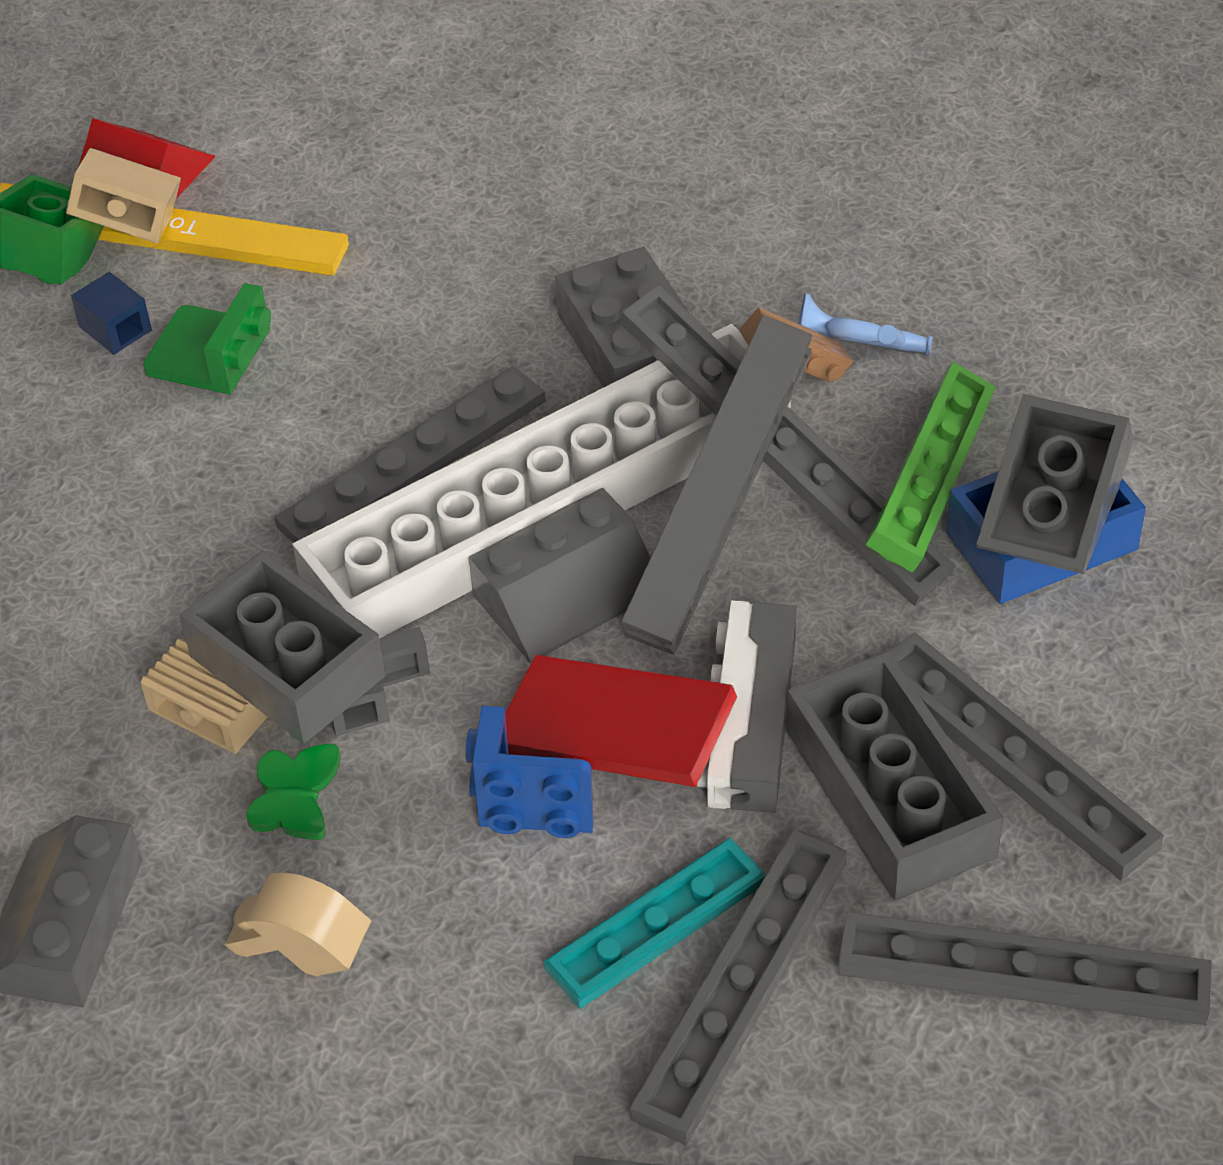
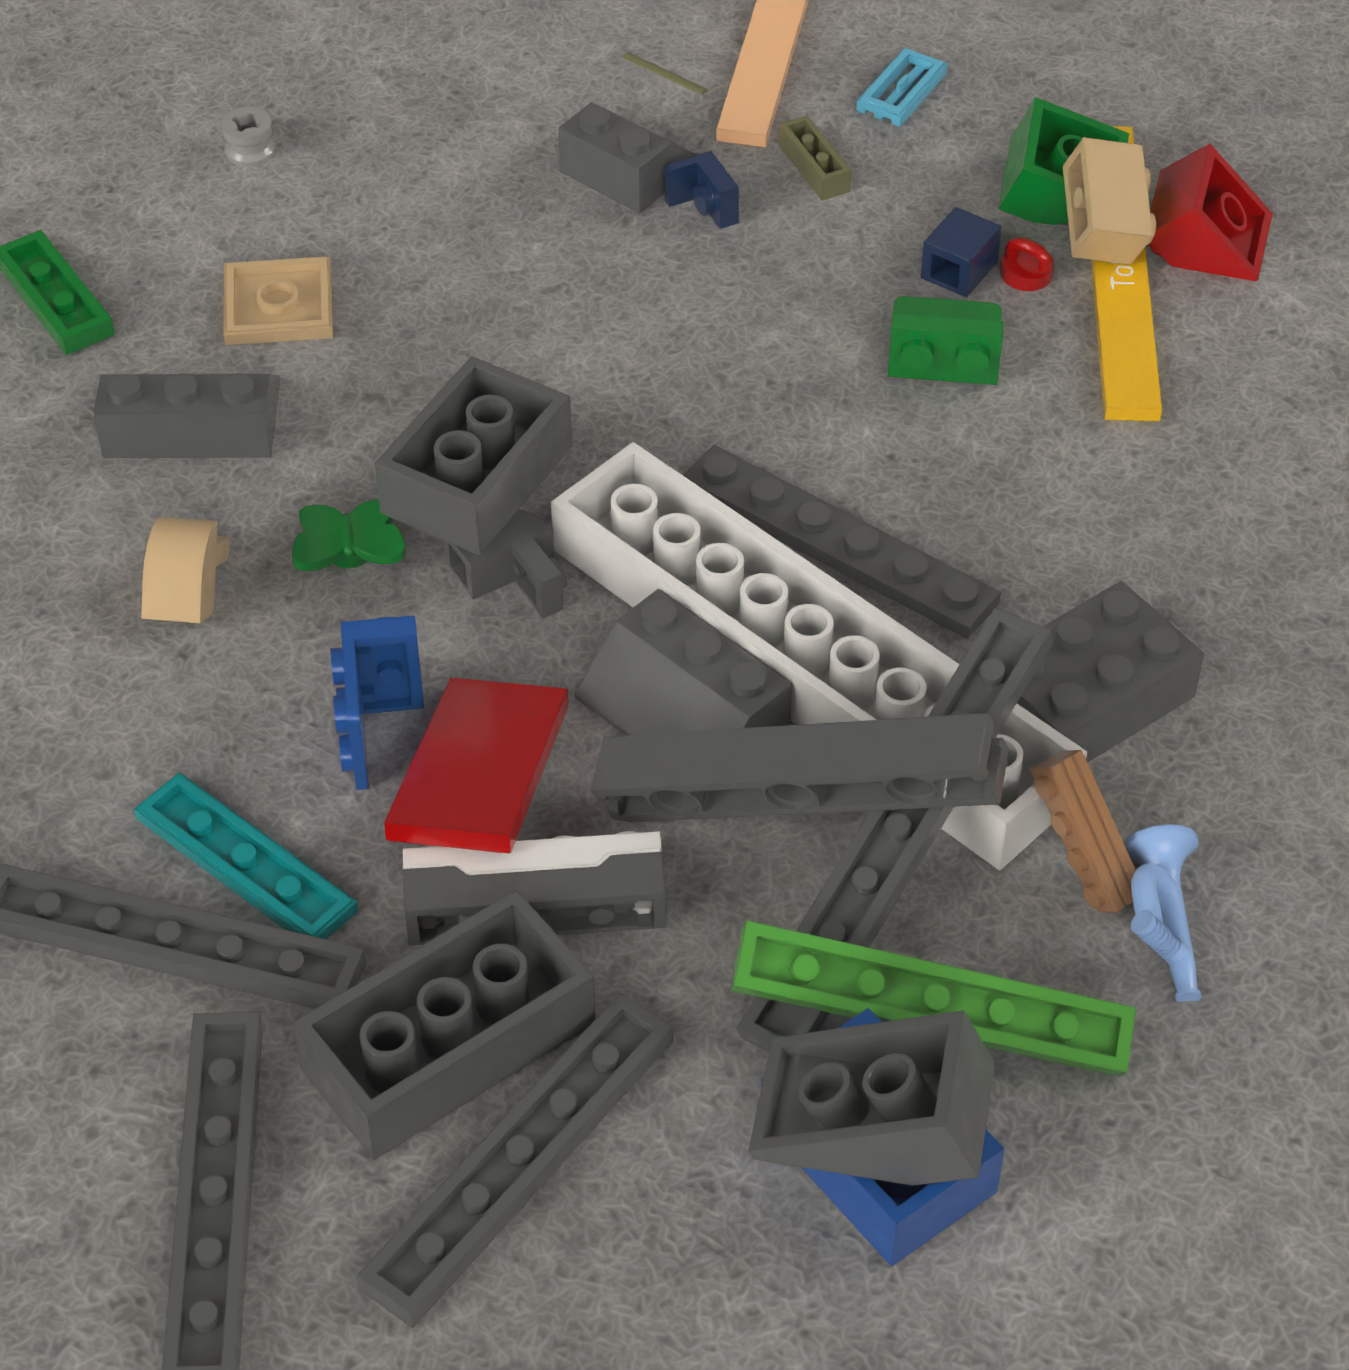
camera: 75 degrees right, 0 degrees up
(143, 277) = (1026, 265): none -> red tile

